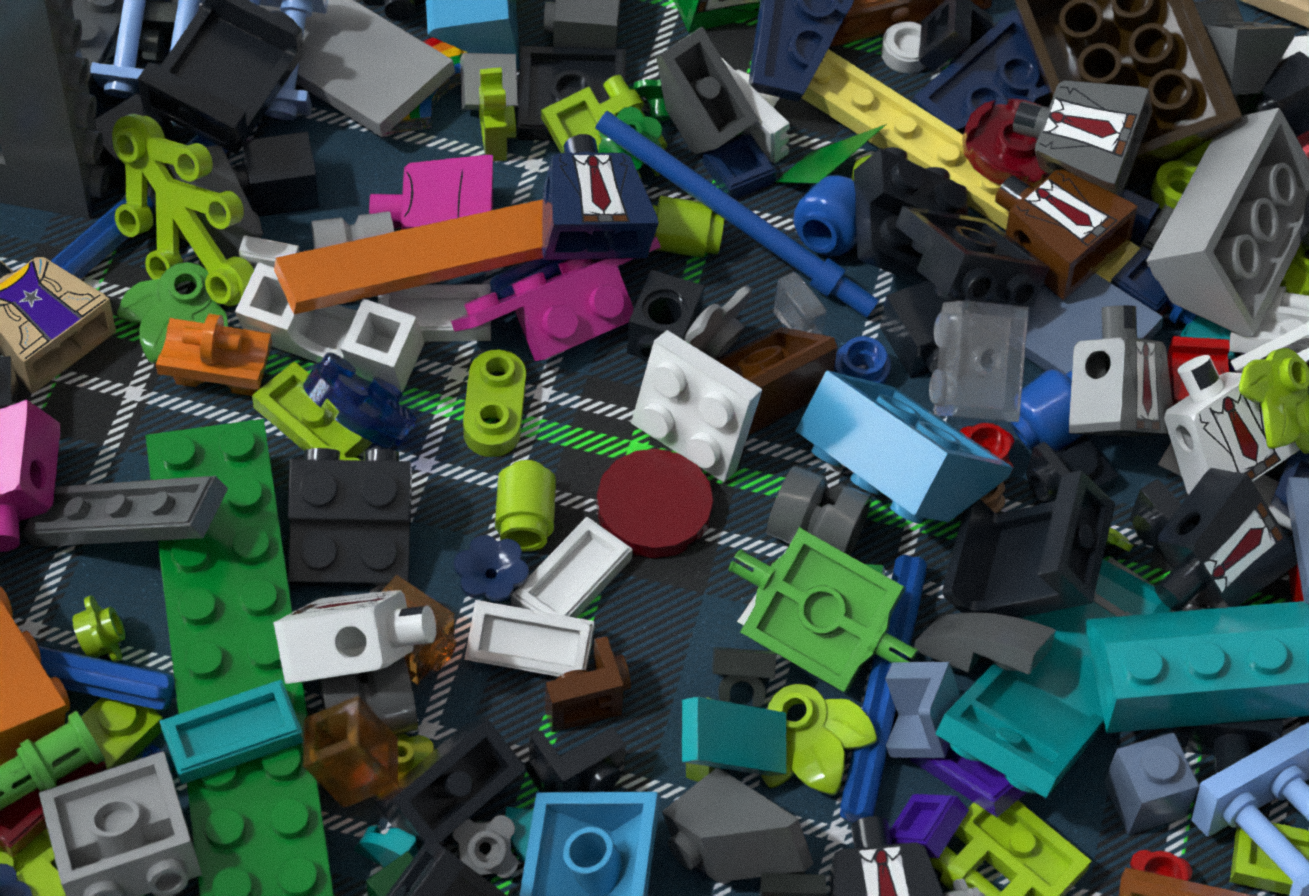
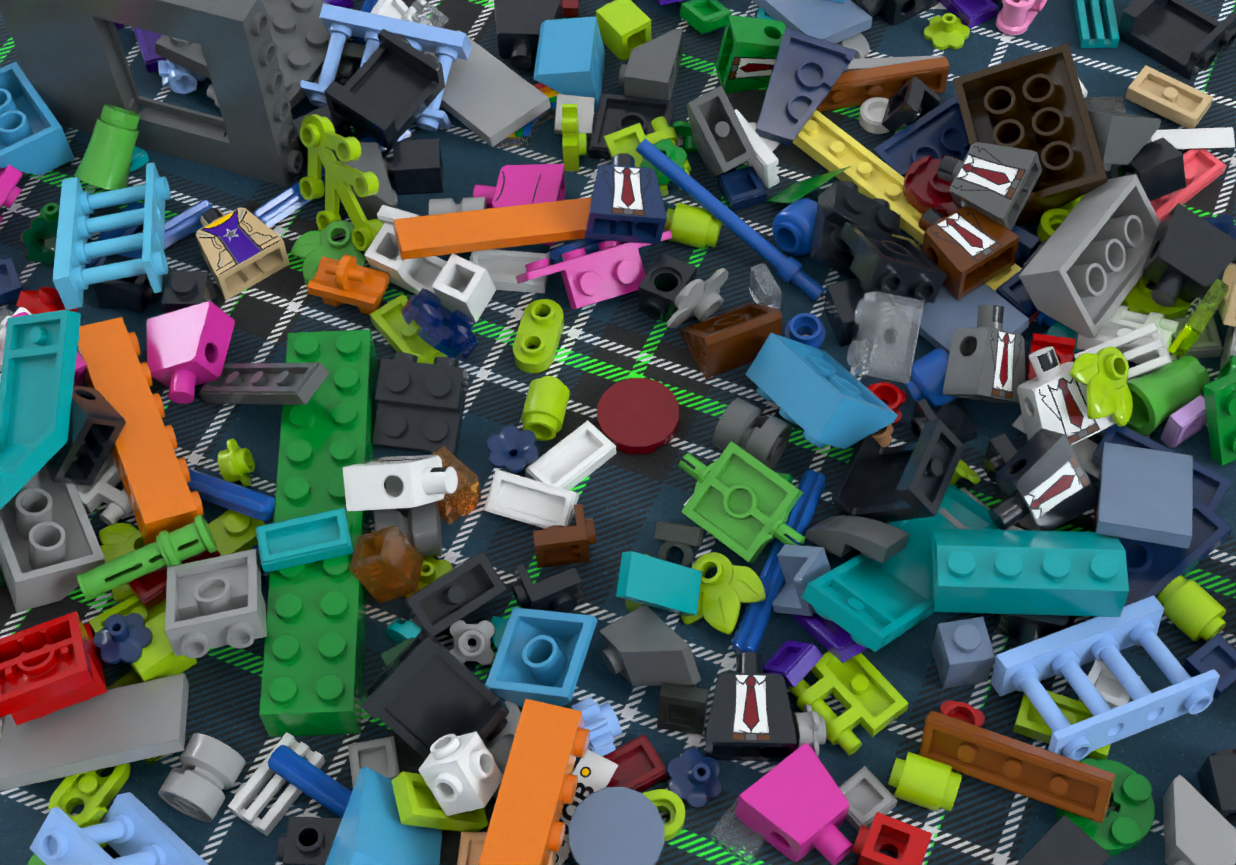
camera: 15 degrees right, 0 degrees up
(695, 405) = (675, 349): white plate -> none

